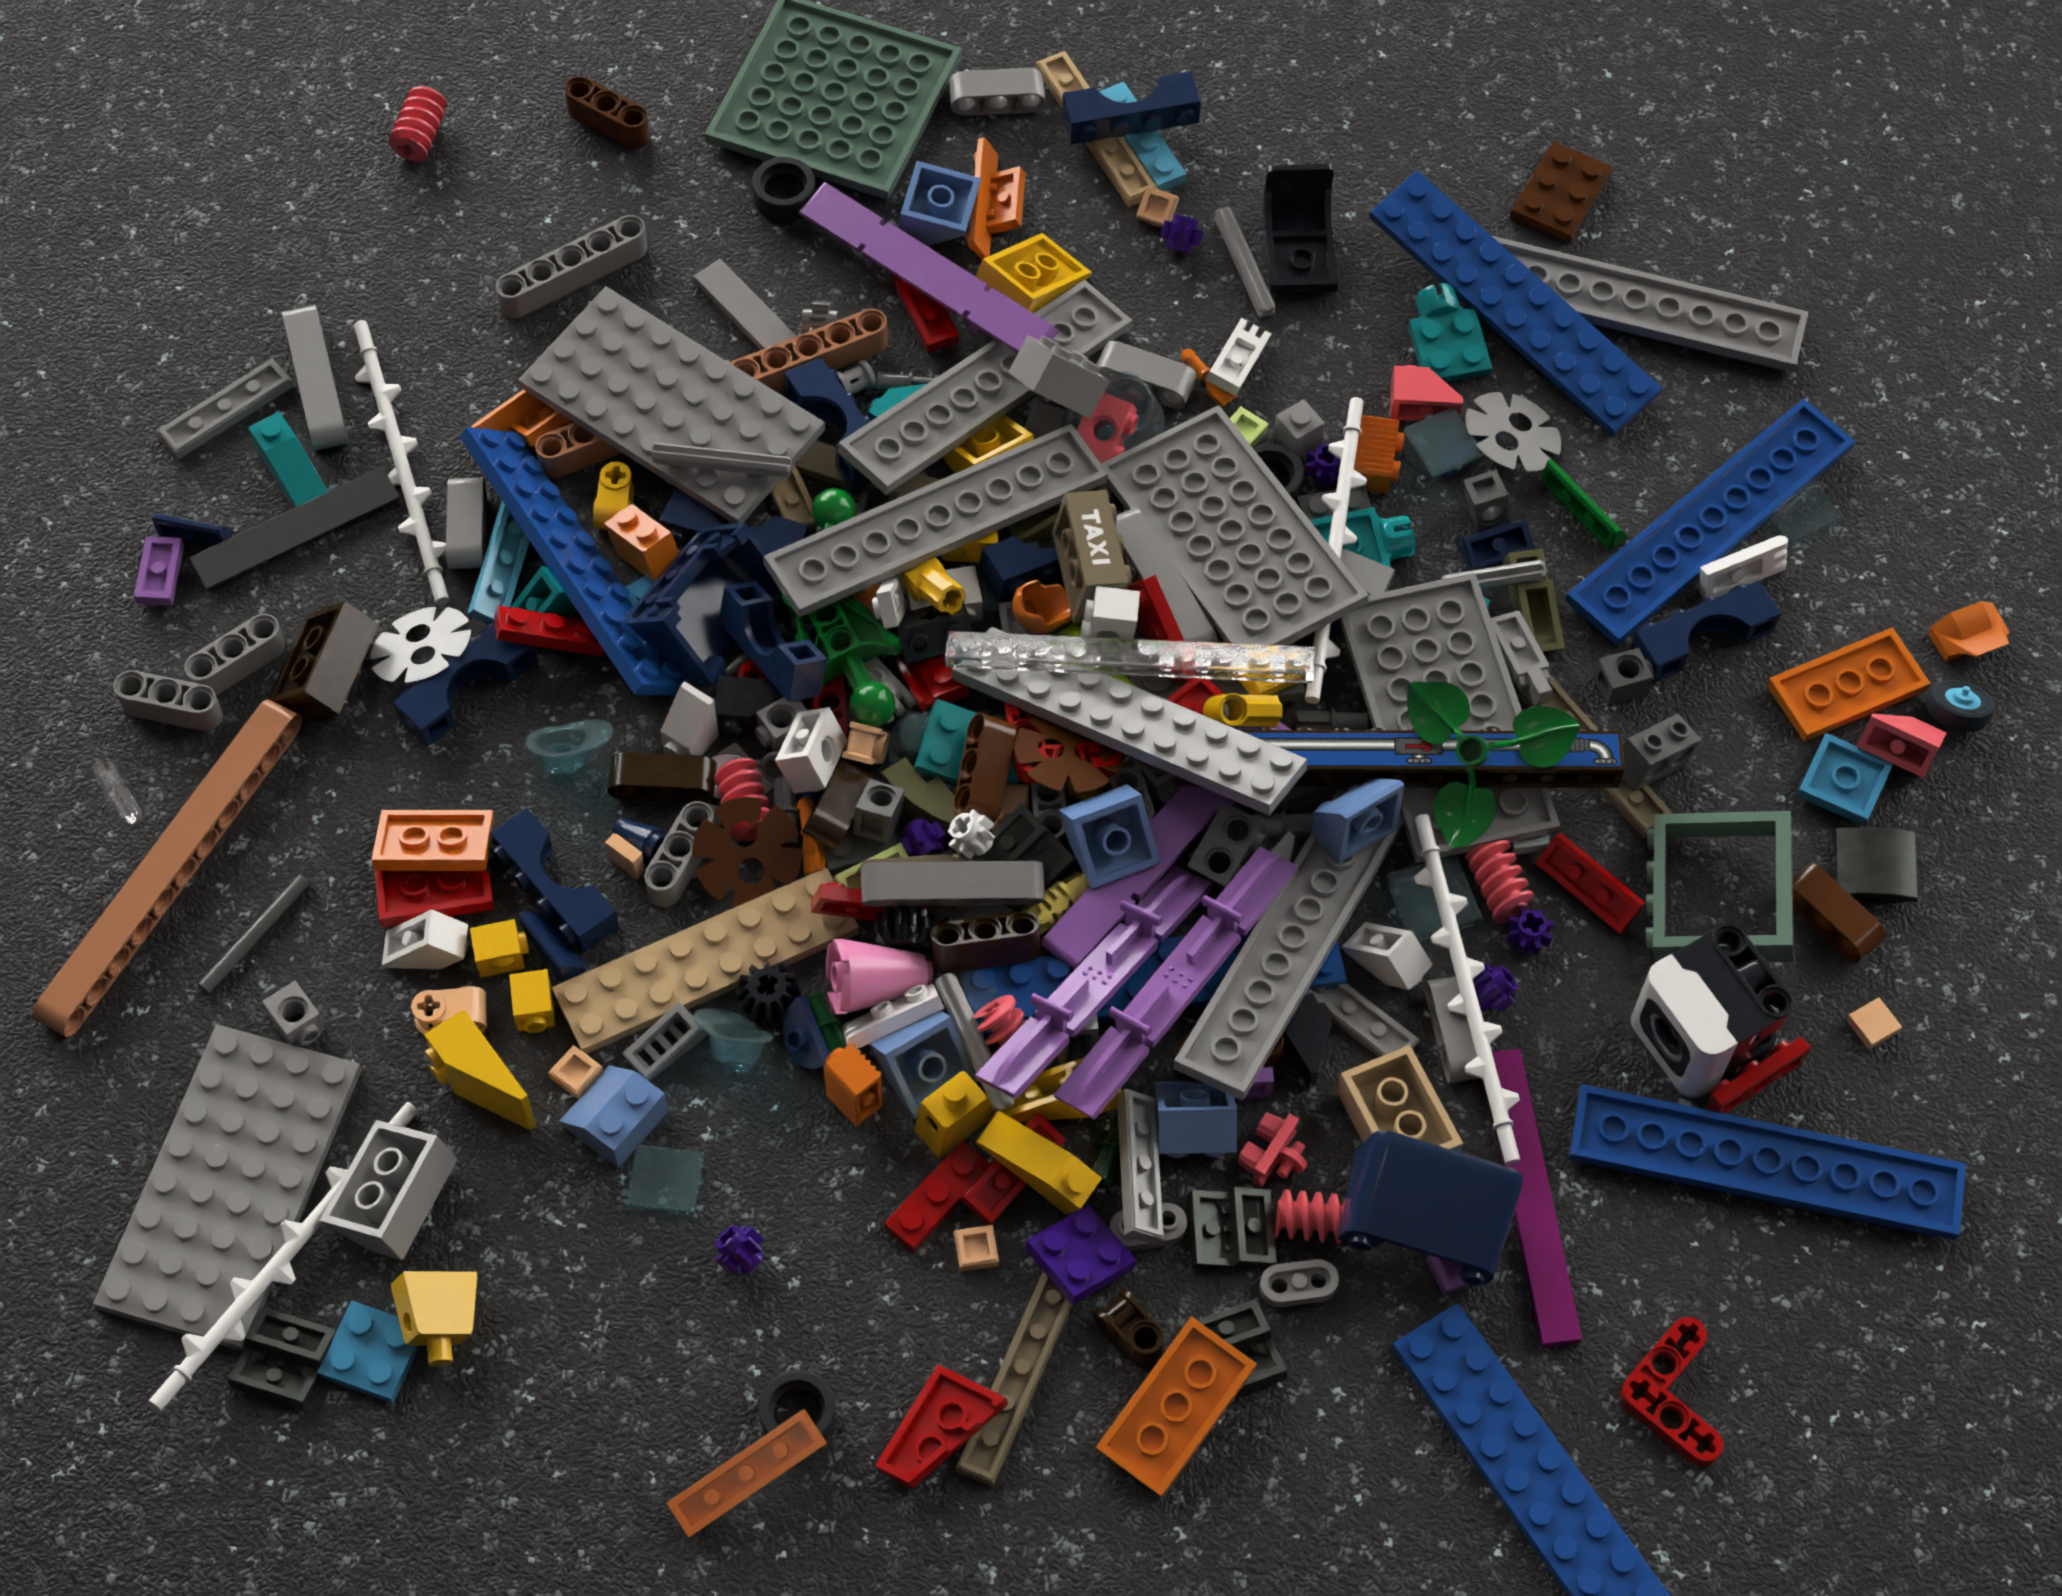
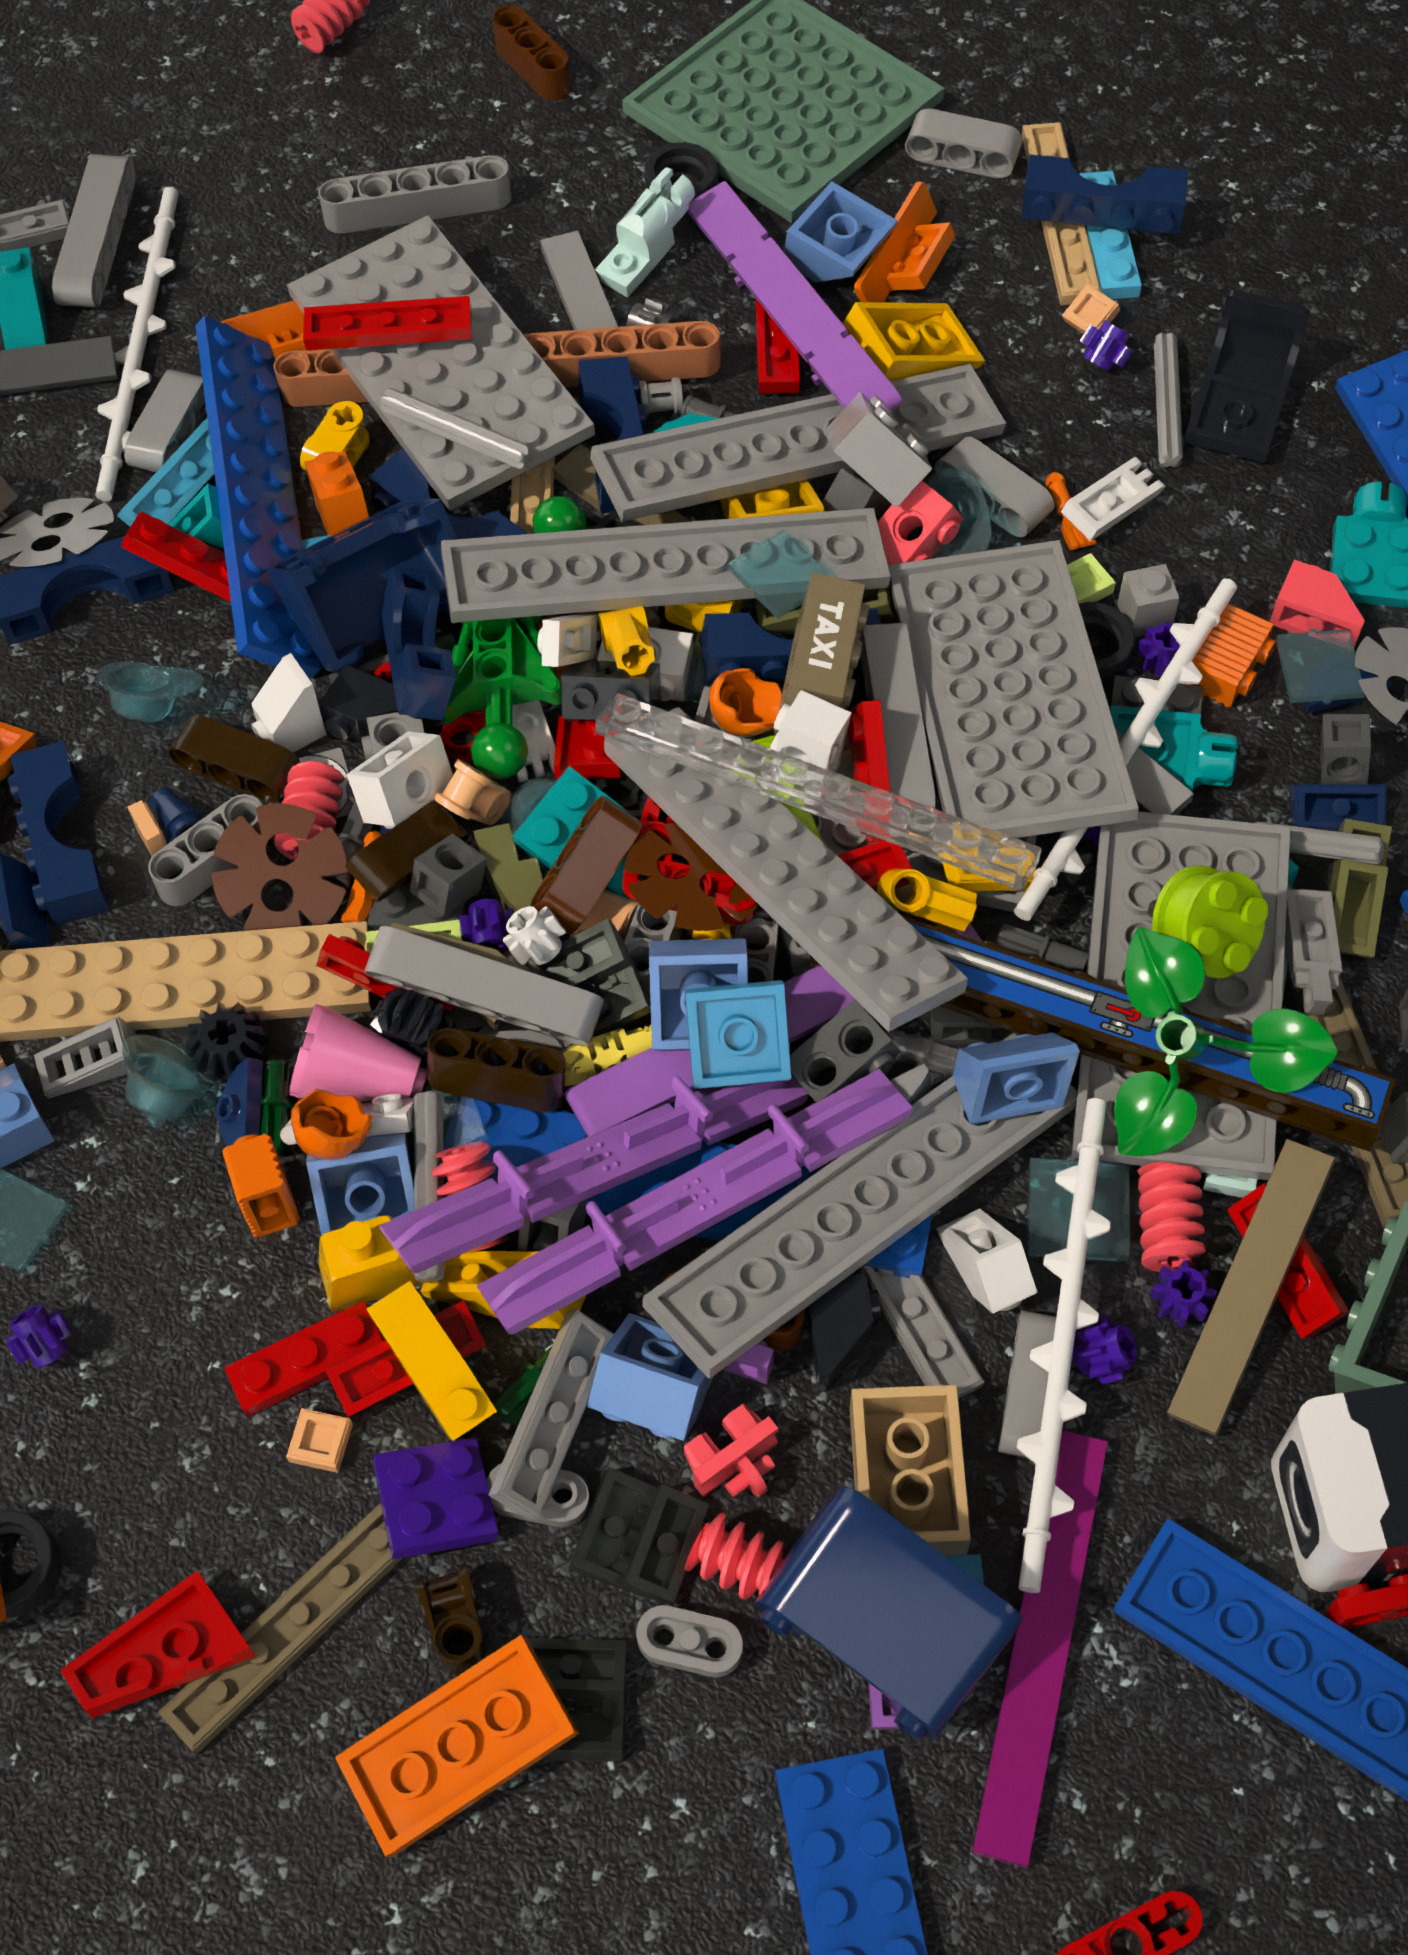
camera: 25 degrees right, 0 degrees up
(625, 389) = (387, 323): none -> red plate
(780, 247) = (646, 233): none -> light aqua plate
(891, 1021) = (329, 1124): none -> orange hair
(1027, 499) = (776, 572): none -> clear light blue piece
(1154, 855) = (738, 1034): none -> dark azure plate
(1452, 655) = (1215, 914): none -> lime wheel
(1575, 909) = (1251, 1287): none -> dark tan tile

